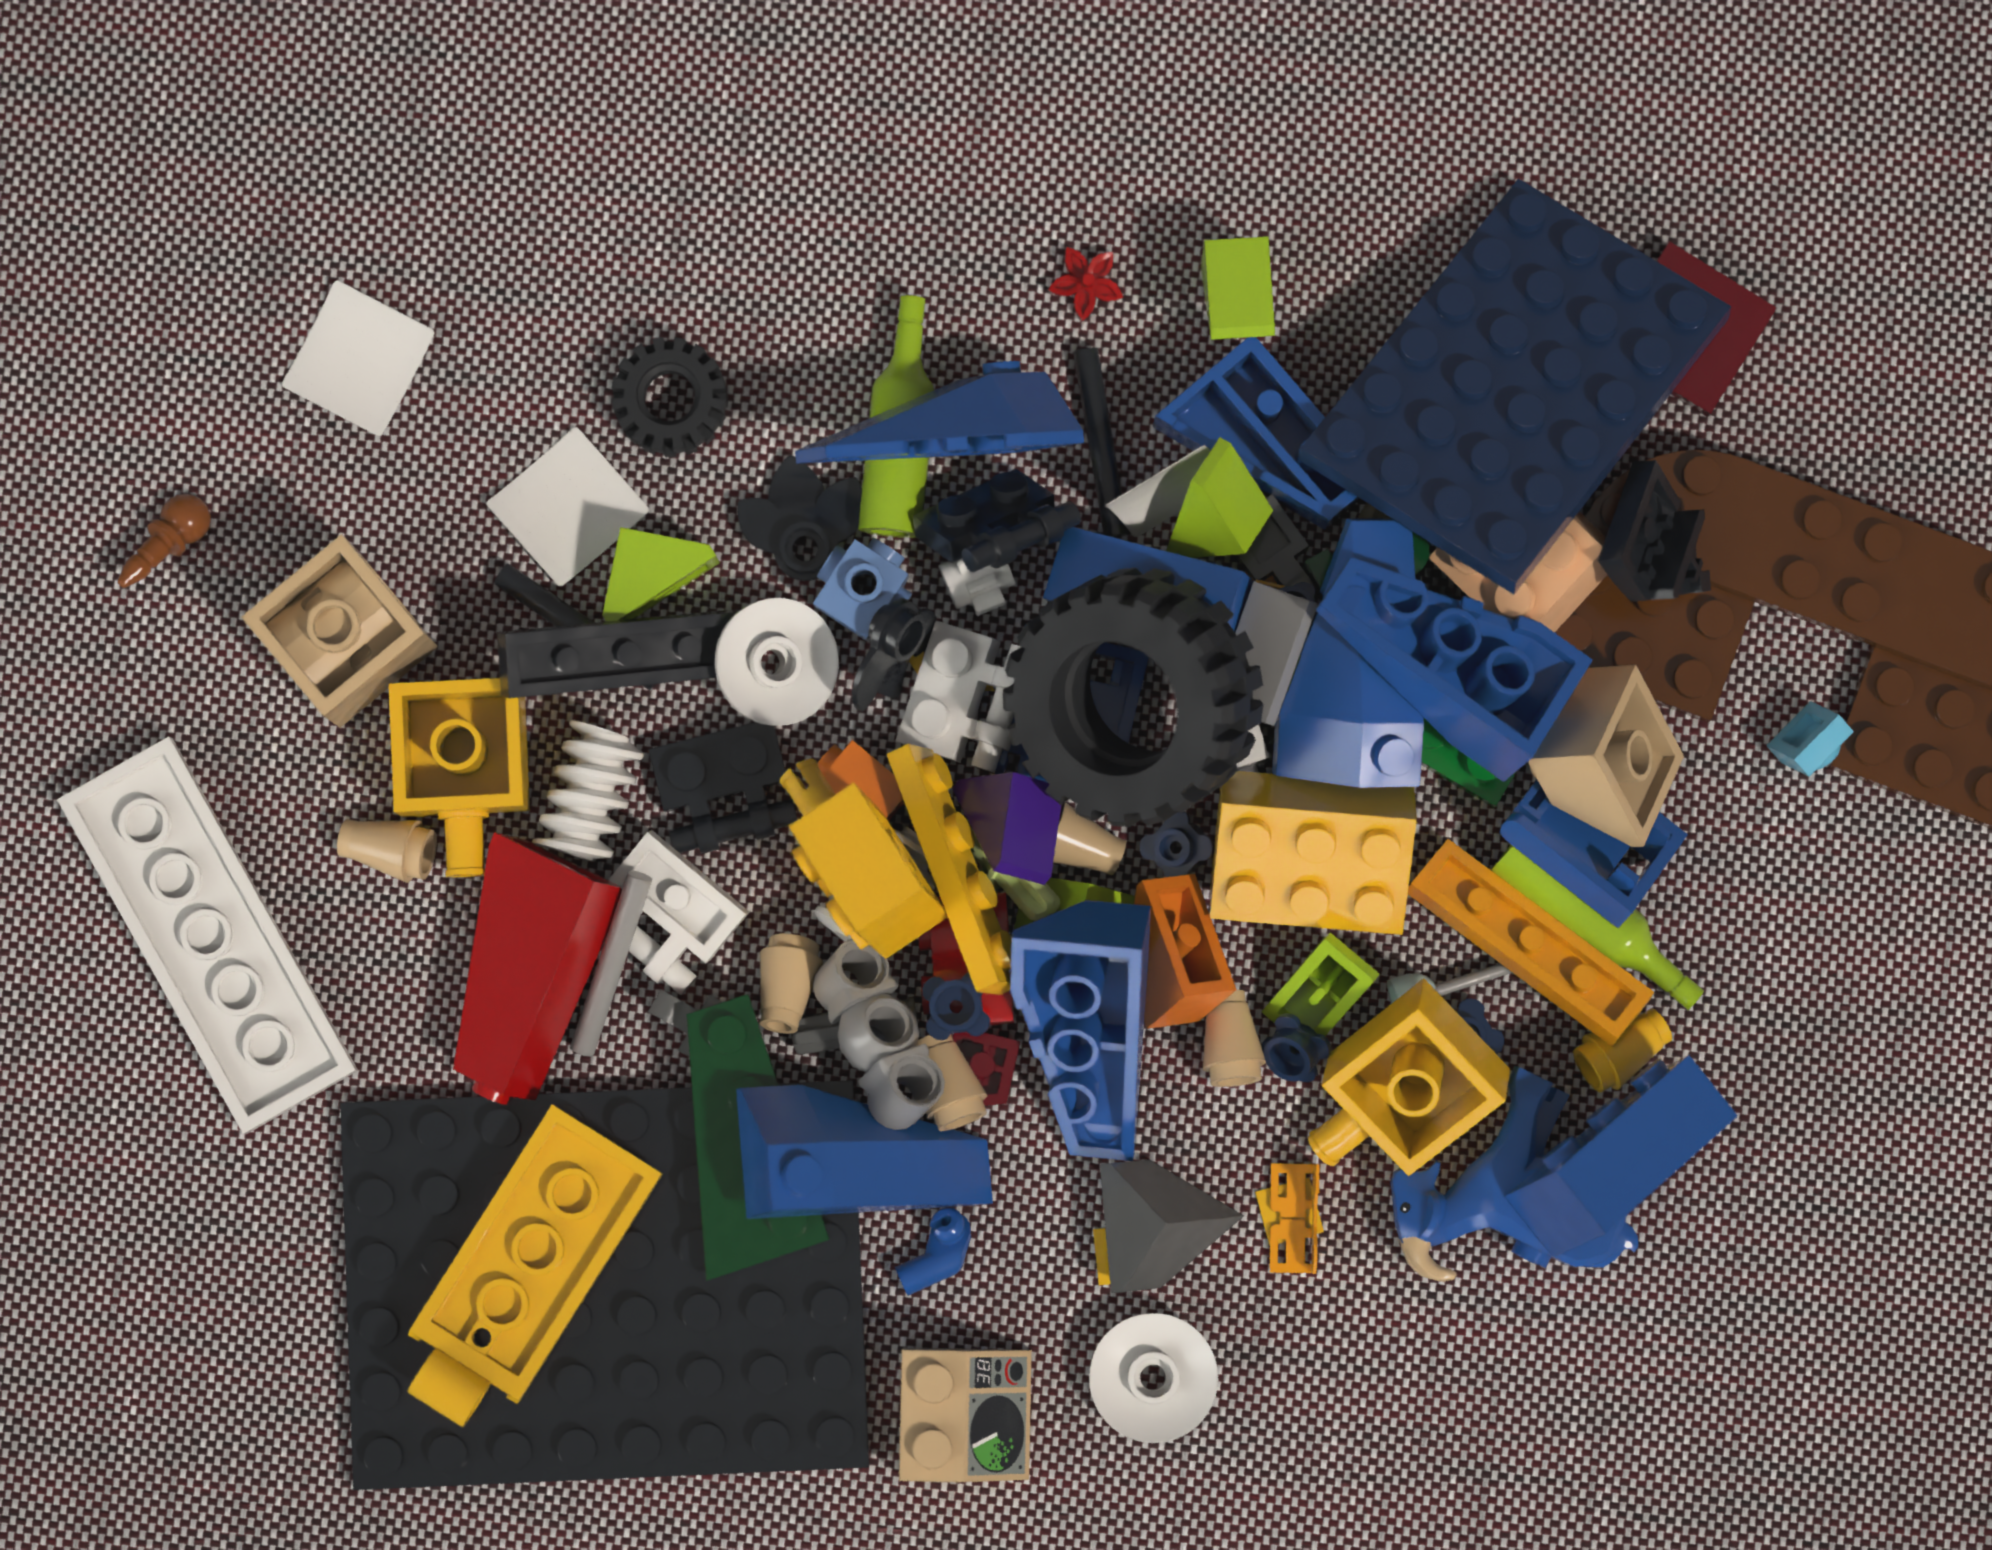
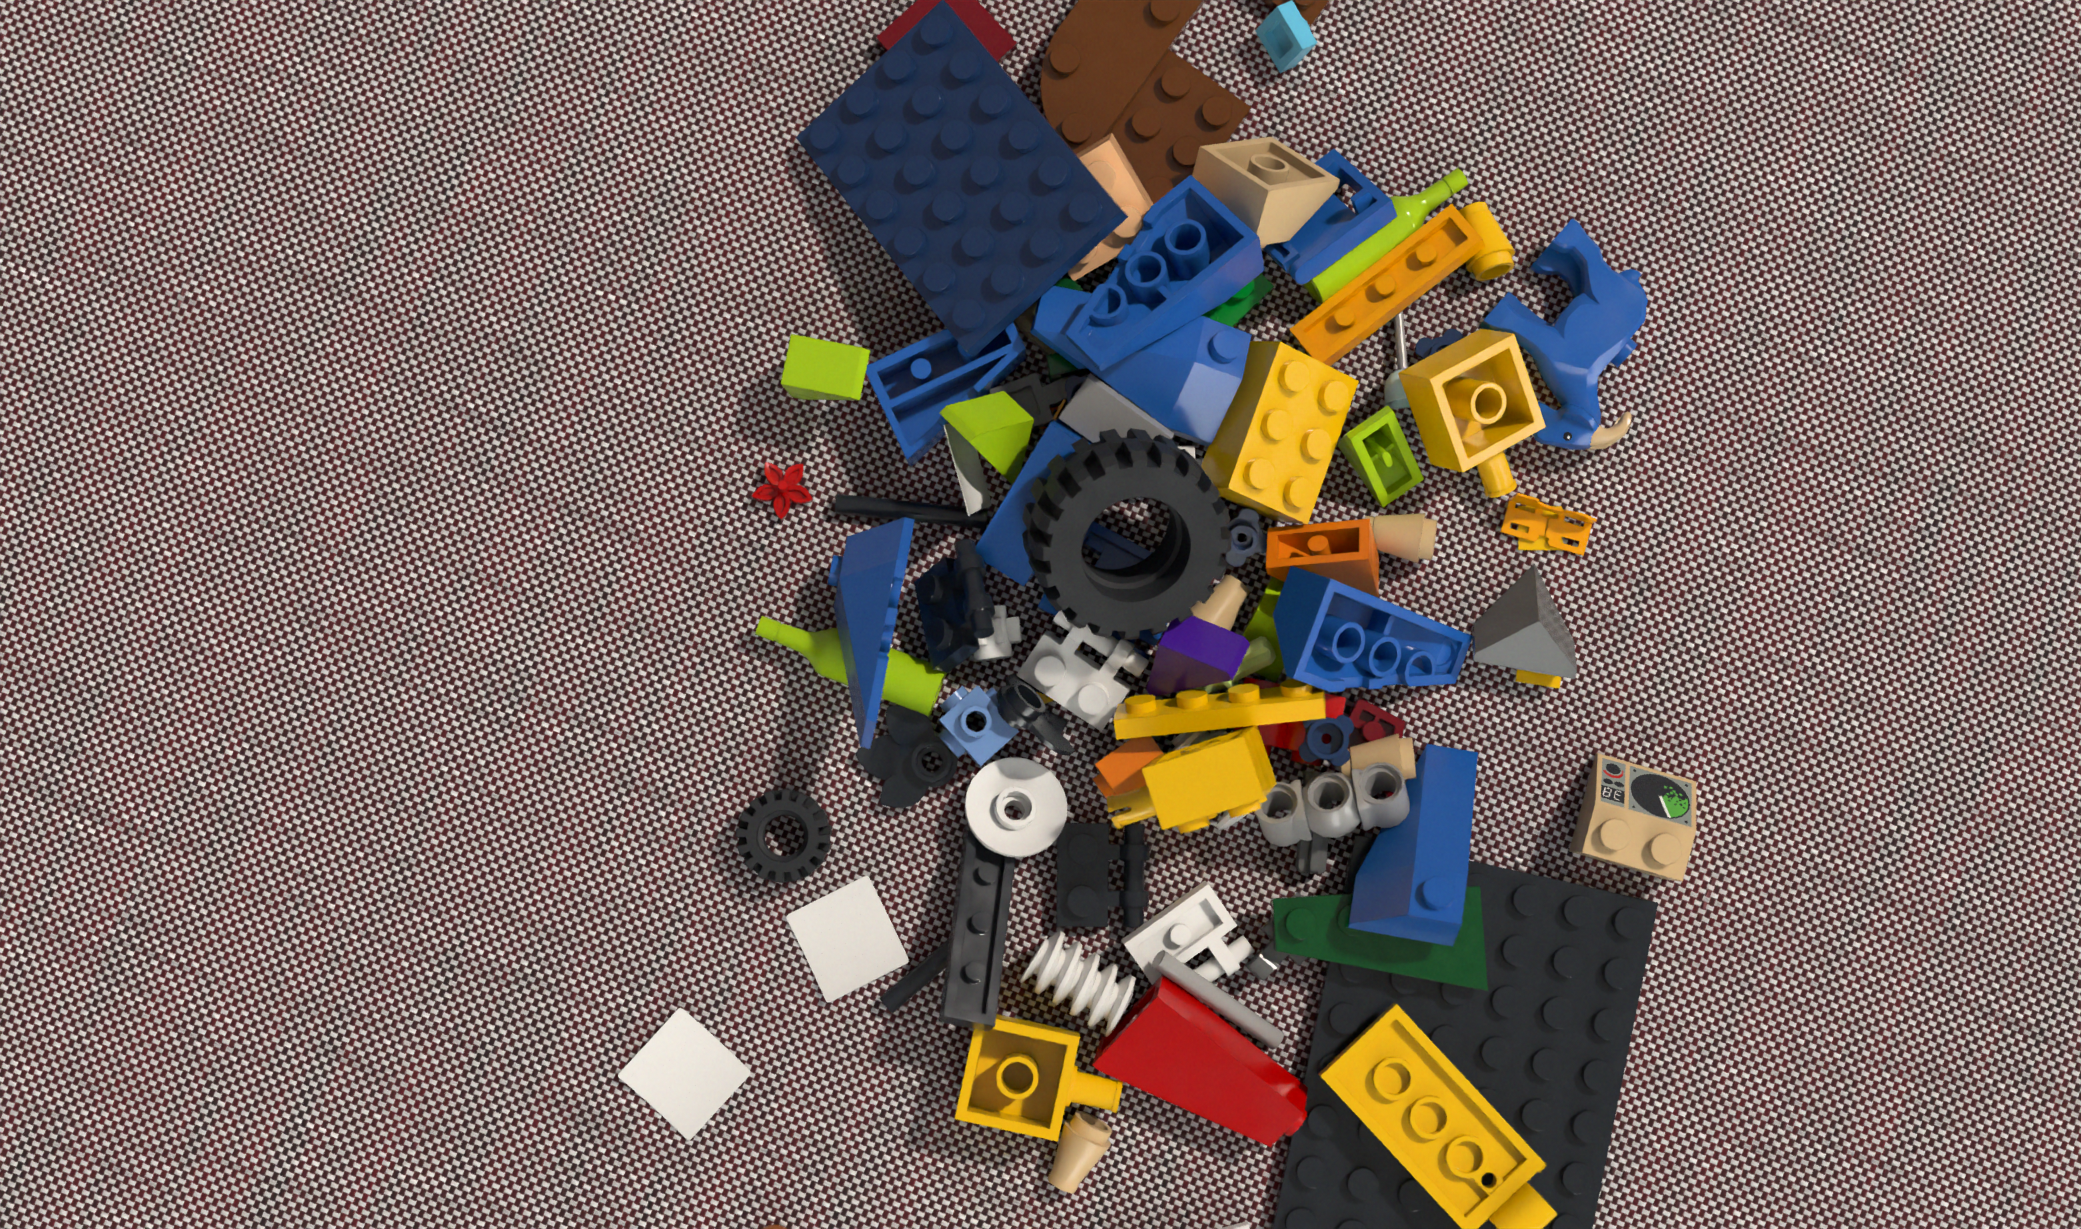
camera: 75 degrees left, 0 degrees up
(339, 631) = (901, 1147): tan brick -> none
(650, 570) = (916, 887): lime slope -> none
(786, 980) = (1267, 865): tan cone -> none
(943, 1254) = (1508, 801): blue arm -> none
(1161, 1412) = (1670, 661): white dish -> none
(1295, 1049) = (1421, 489): dark blue plate -> none
(1621, 1156) = (1578, 258): blue wedge -> none
(1653, 540) = (1109, 104): black slope -> none

